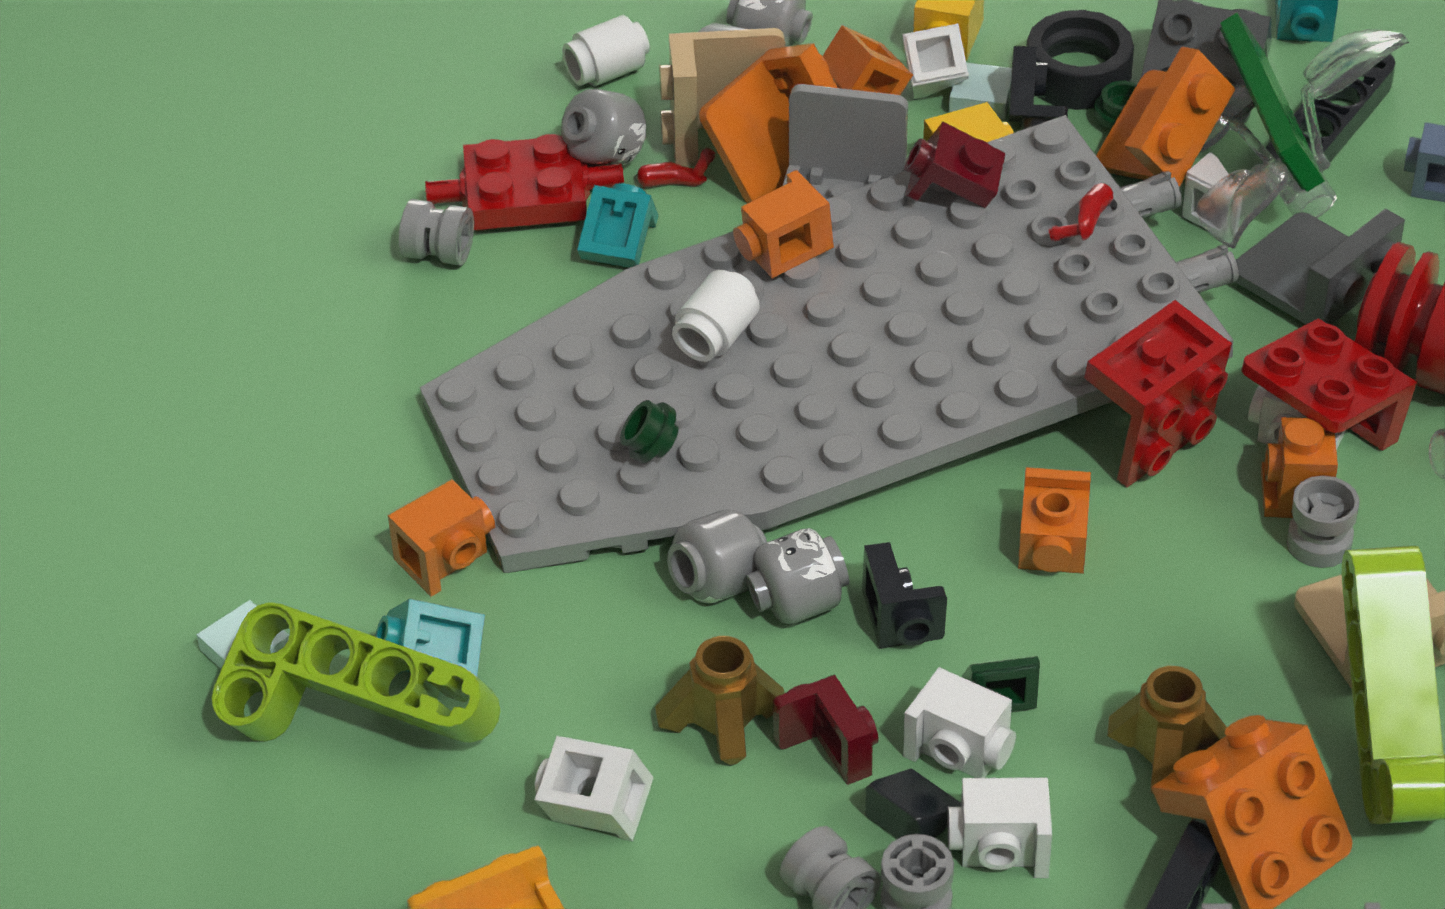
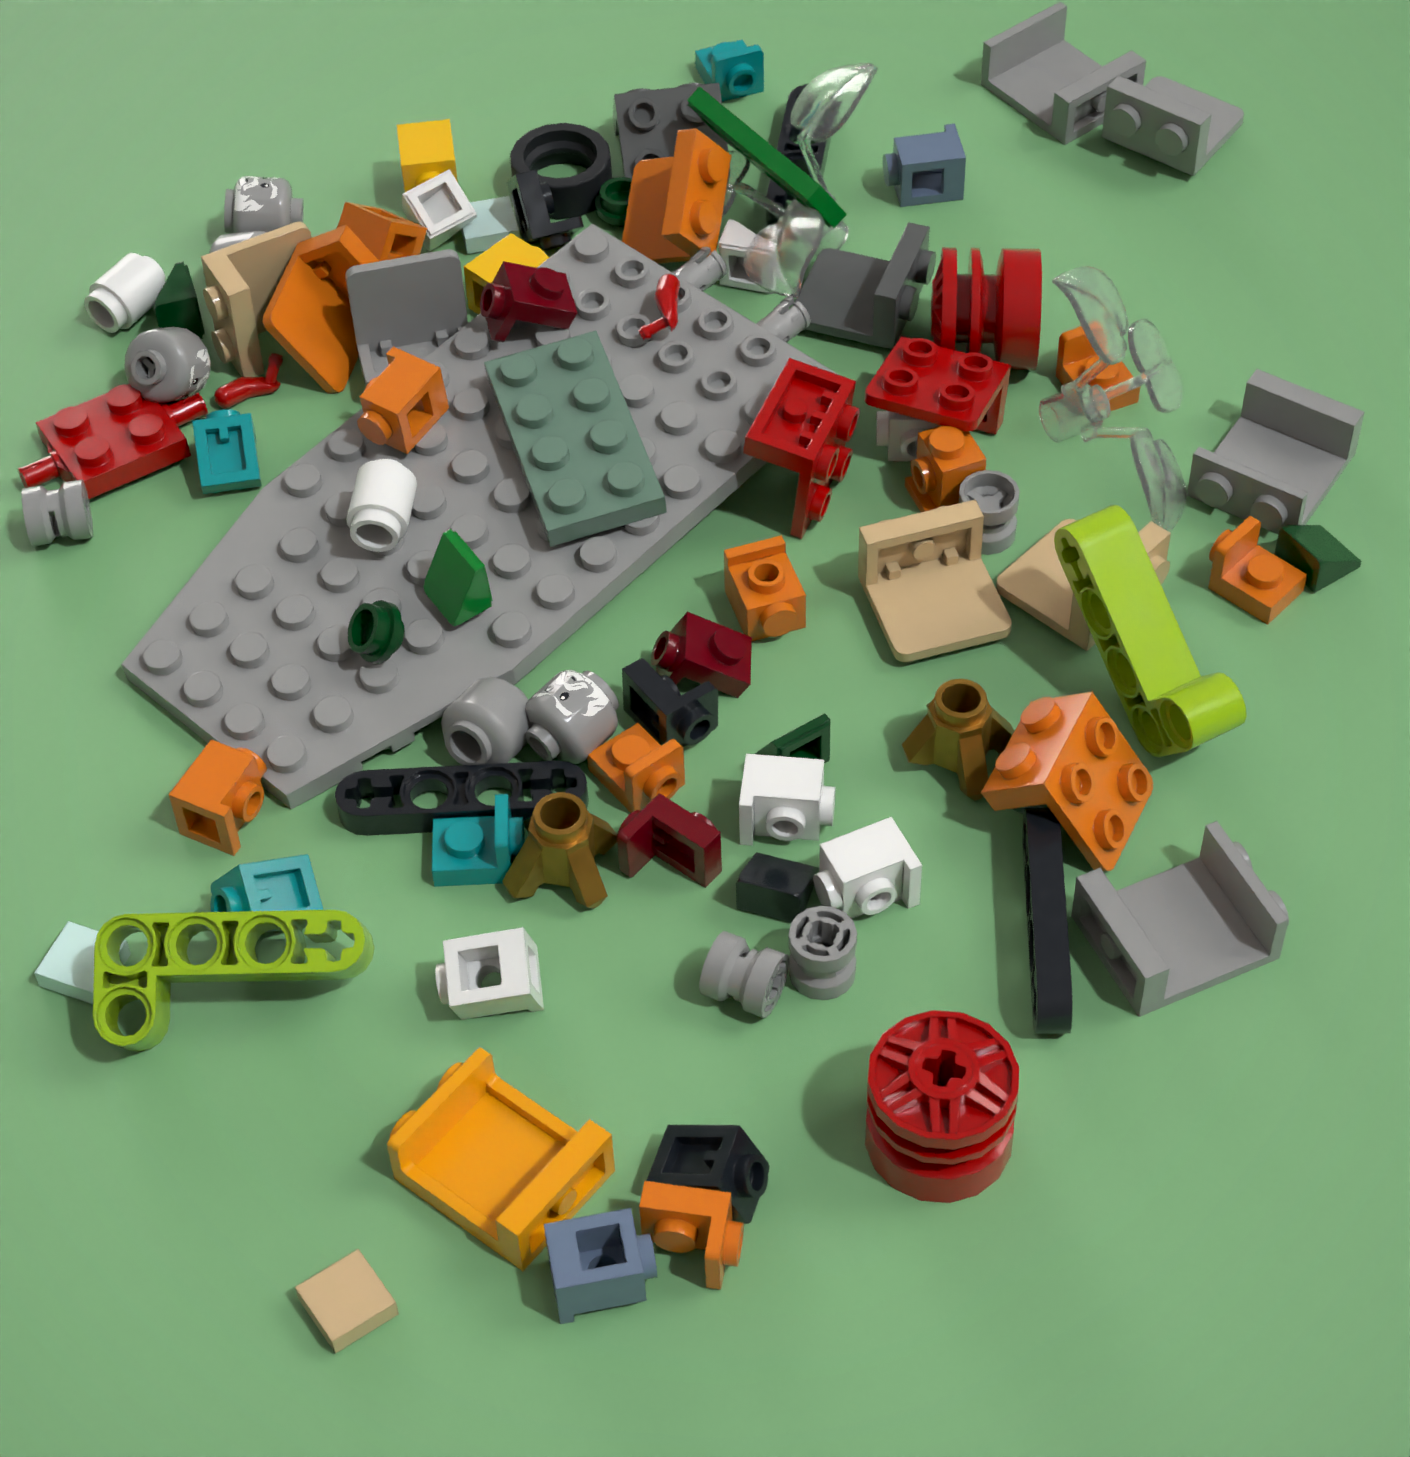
camera: 25 degrees left, 5 degrees up
(640, 76) = (178, 302): none -> dark green slope
(643, 665) = (476, 847): none -> teal bracket
(666, 608) = (459, 783): none -> black beam
(748, 410) = (457, 580): none -> green slope
(843, 646) = (638, 767): none -> orange bracket
(932, 313) = (574, 438): none -> sand green plate
(962, 563) = (704, 653): none -> dark red bracket
(1226, 569) = (931, 582): none -> tan bracket

